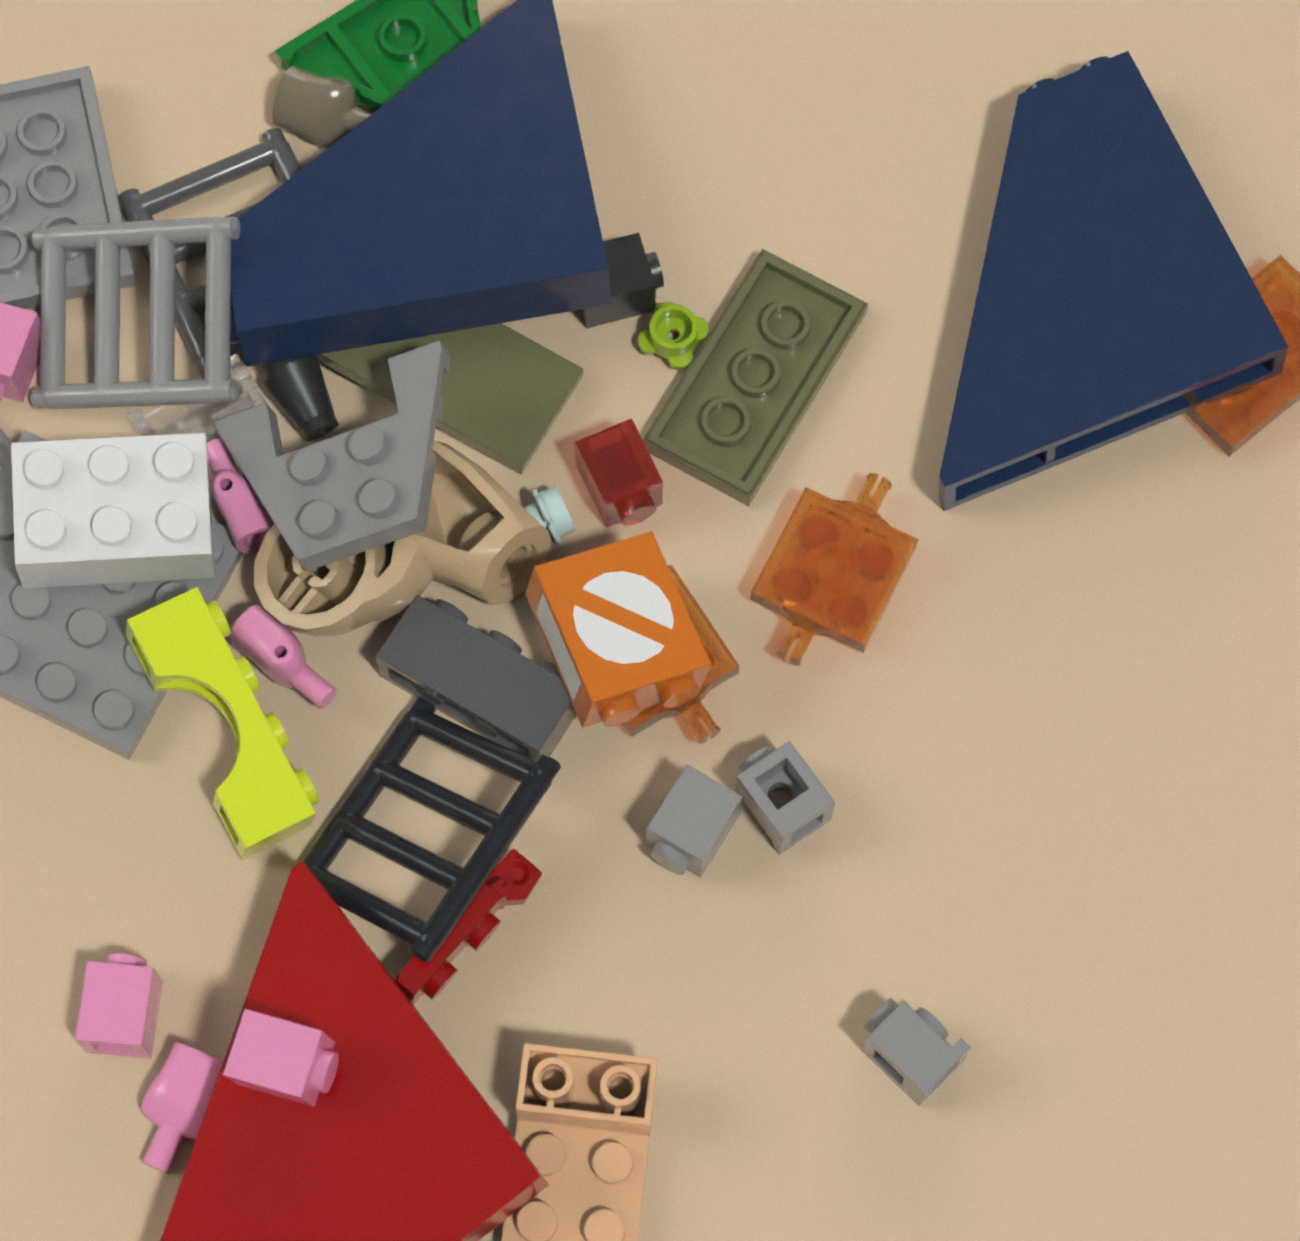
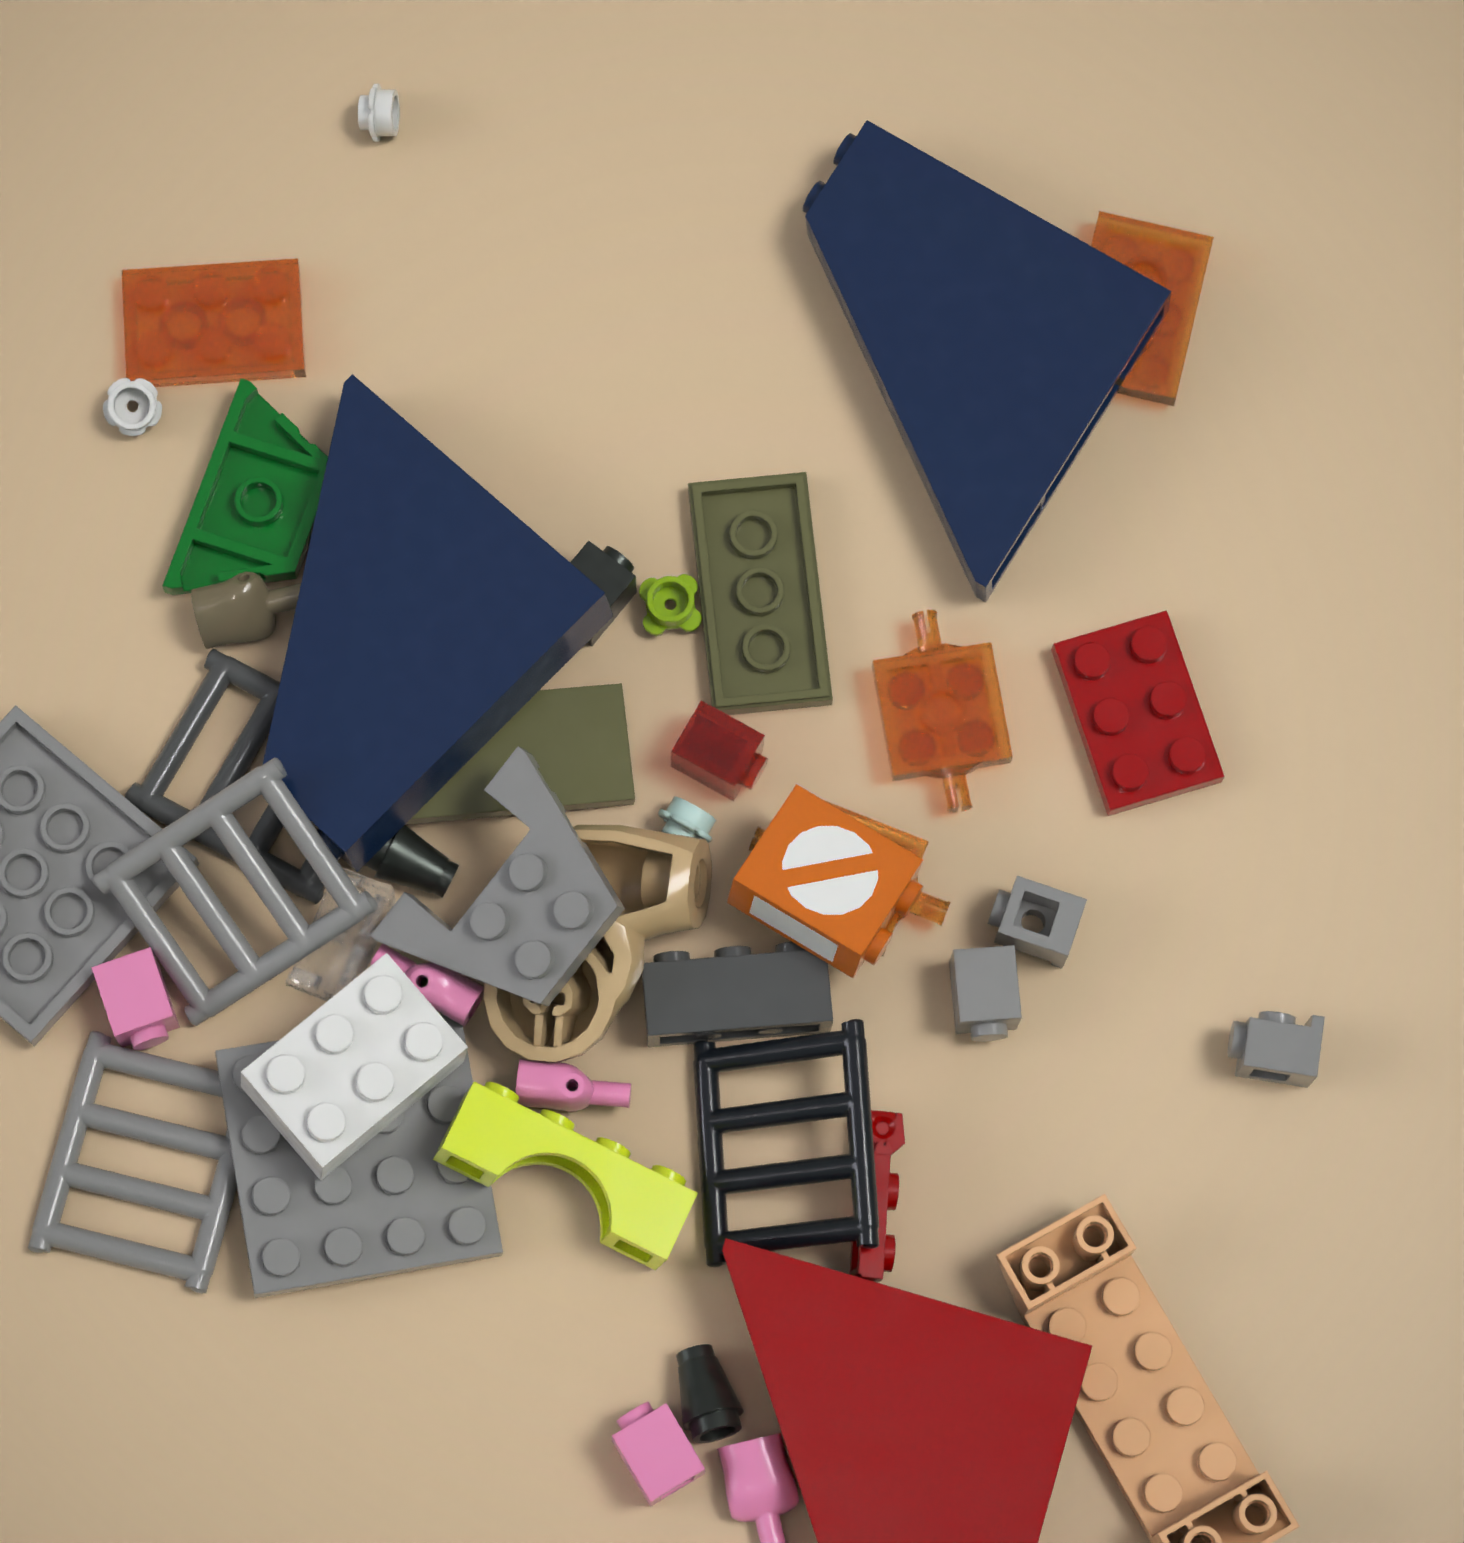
camera: 40 degrees left, 5 degrees up
(198, 992) = (707, 1396): none -> pearl dark grey cone
(282, 1058) = (836, 1399): bright pink brick -> none
(1005, 686) = (1137, 713): none -> red plate

